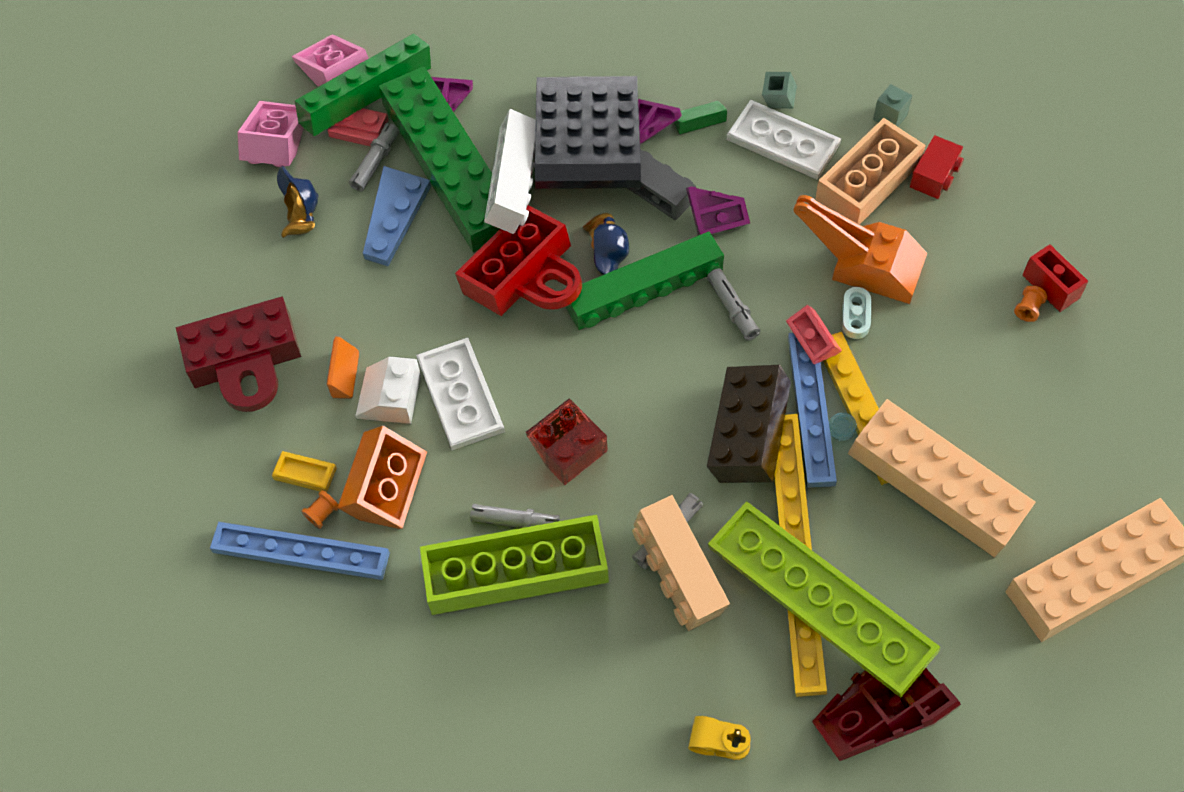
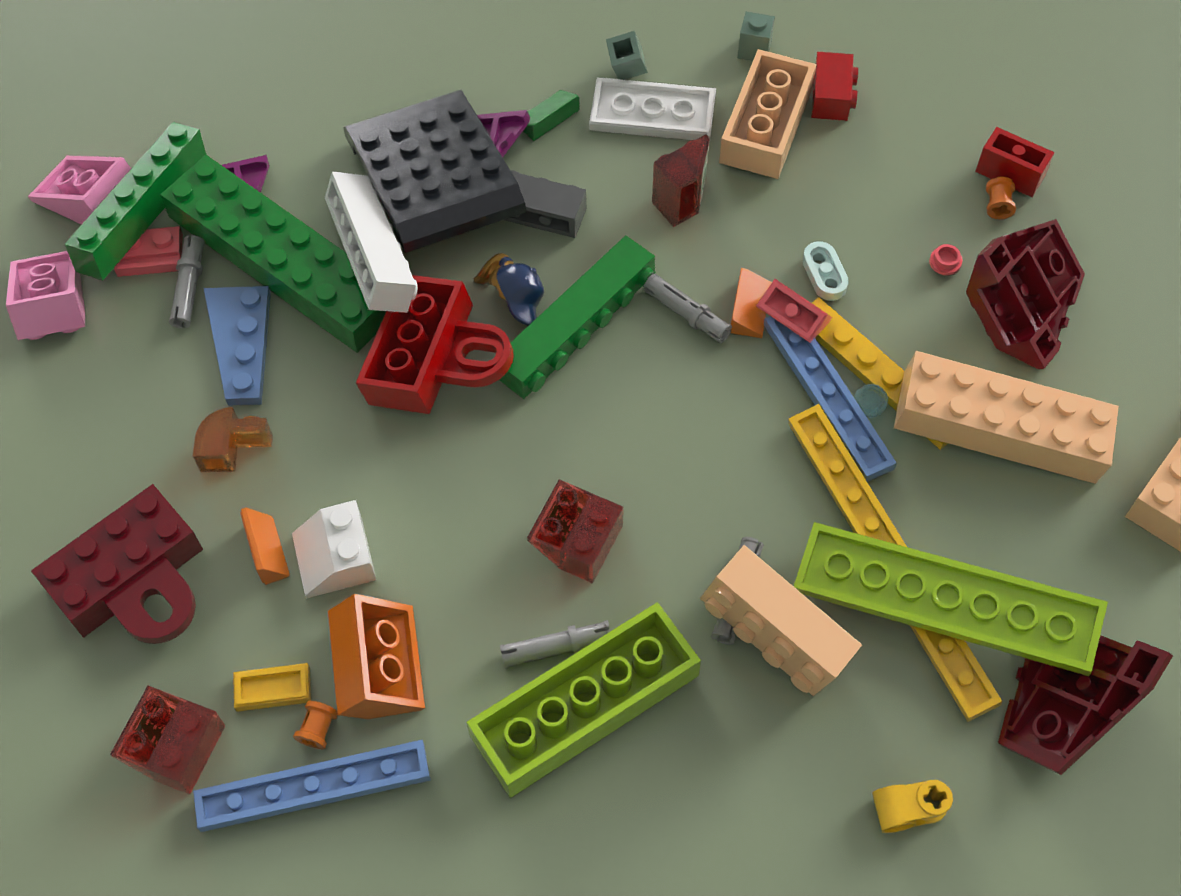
camera: 25 degrees left, 0 degrees up
(217, 480) = (169, 739): none -> clear red slope
(300, 200) = (118, 363): hair -> none
(347, 279) = (221, 436): none -> clear orange brick
(460, 394) = (421, 522): white tile -> none
(716, 210) = (620, 210): magenta wing -> none
(749, 424) = (774, 434): dark brown brick -> none
(773, 203) = (681, 181): none -> clear red slope
(774, 326) = (746, 316): none -> orange slope
(868, 256) = (810, 204): orange slope -> none
(960, 338) = (946, 259): none -> coral plate
(1010, 383) = (1024, 291): none -> dark red wedge

